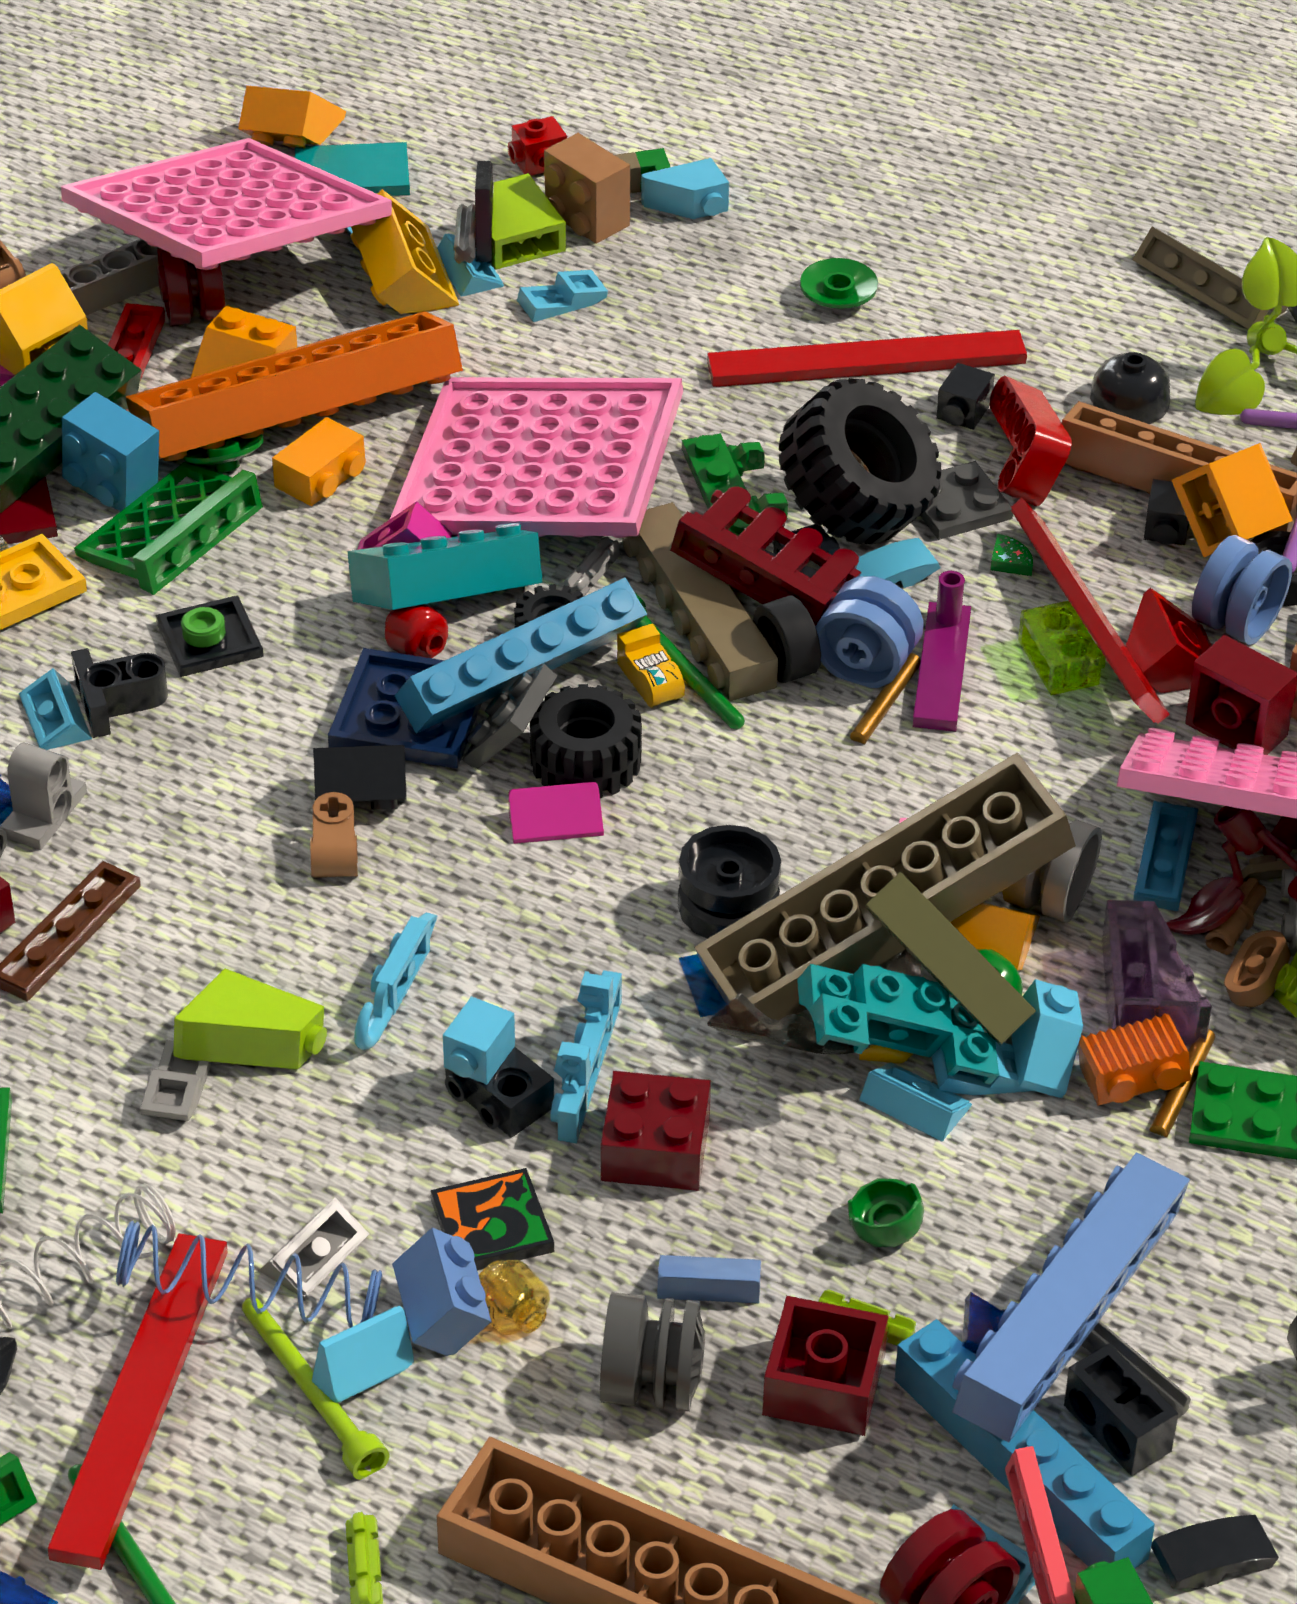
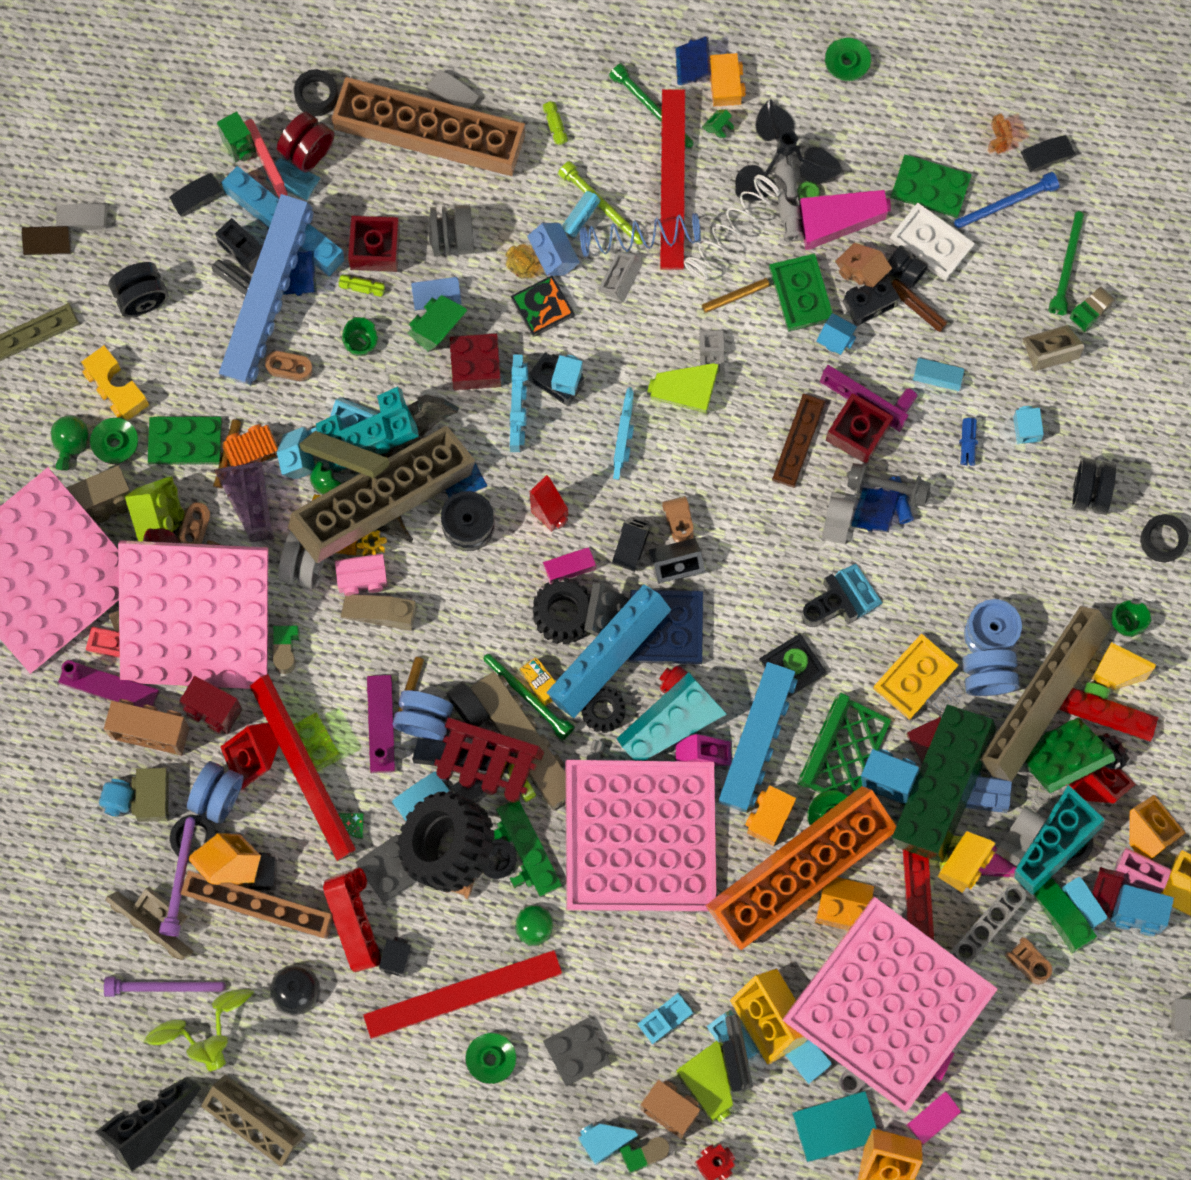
camera: 170 degrees right, 30 degrees up
(90, 1177) = (735, 295): none -> pearl gold bar
(305, 545) = (756, 738): none -> dark azure brick
(426, 815) = (631, 543): none -> black tile
(574, 869) = (548, 504): none -> red slope
(706, 282) = (577, 1052): none -> dark grey plate
(718, 1189) = (435, 322): none -> green slope
(737, 407) = (534, 925): none -> green hair
(767, 478) = (503, 867): none -> black gear
(893, 784) = (380, 610): none -> dark tan slope
(1042, 1195) = (290, 363): none -> medium nougat plate
(1097, 786) = (283, 647): none -> leg

